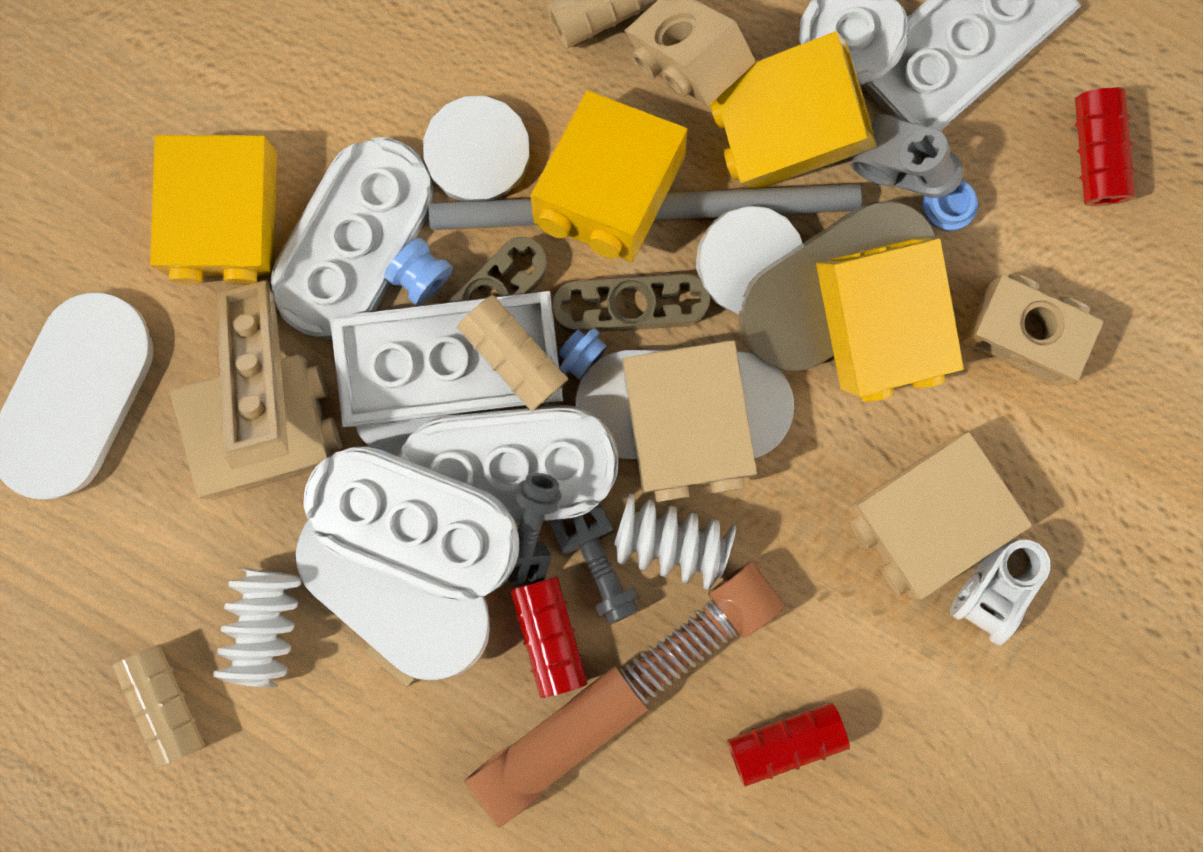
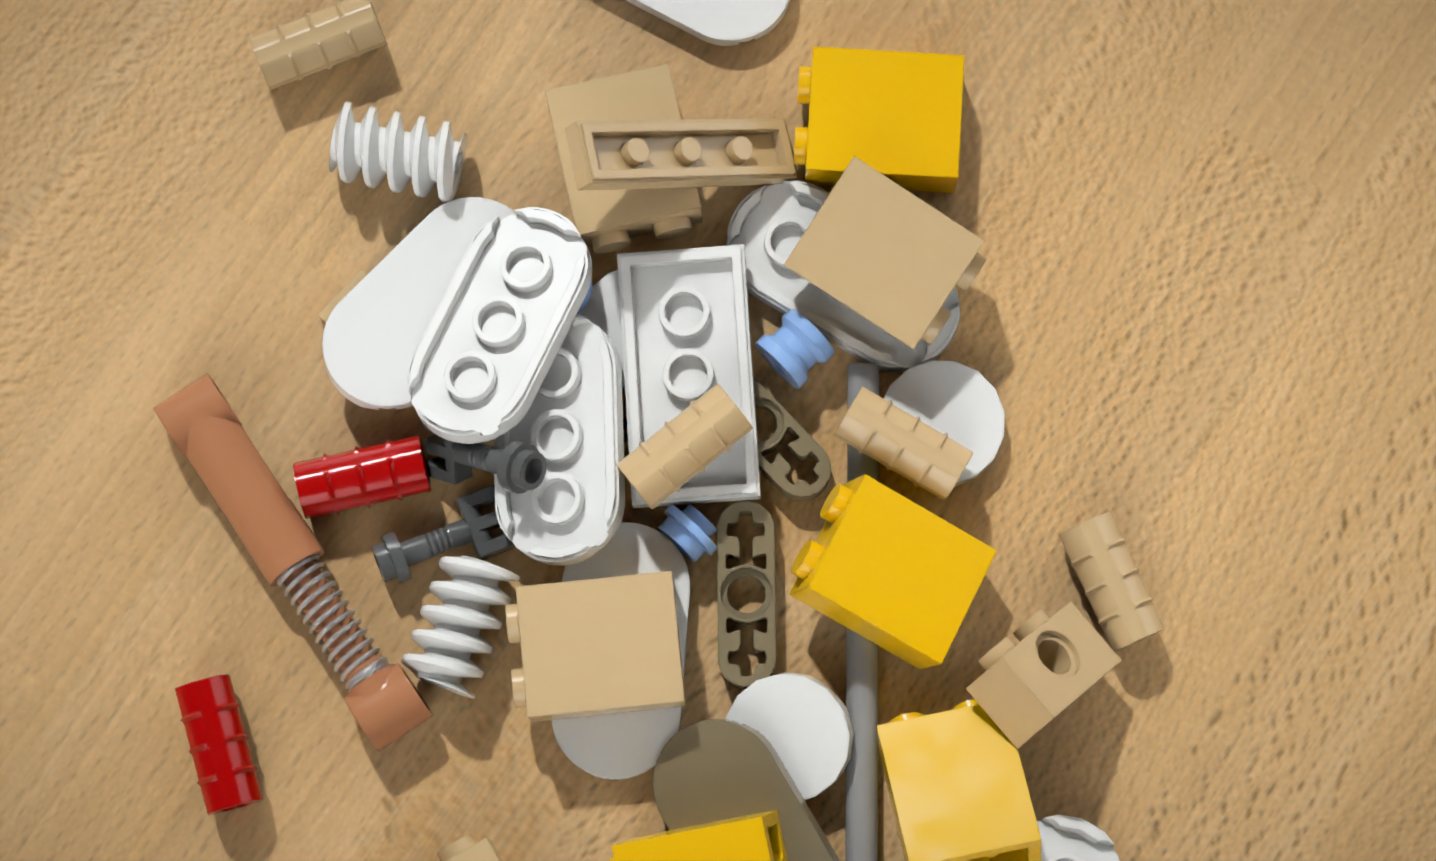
camera: 95 degrees right, 5 degrees down
(333, 190) = (887, 254): none -> tan brick
(498, 172) = (903, 443): none -> tan axle

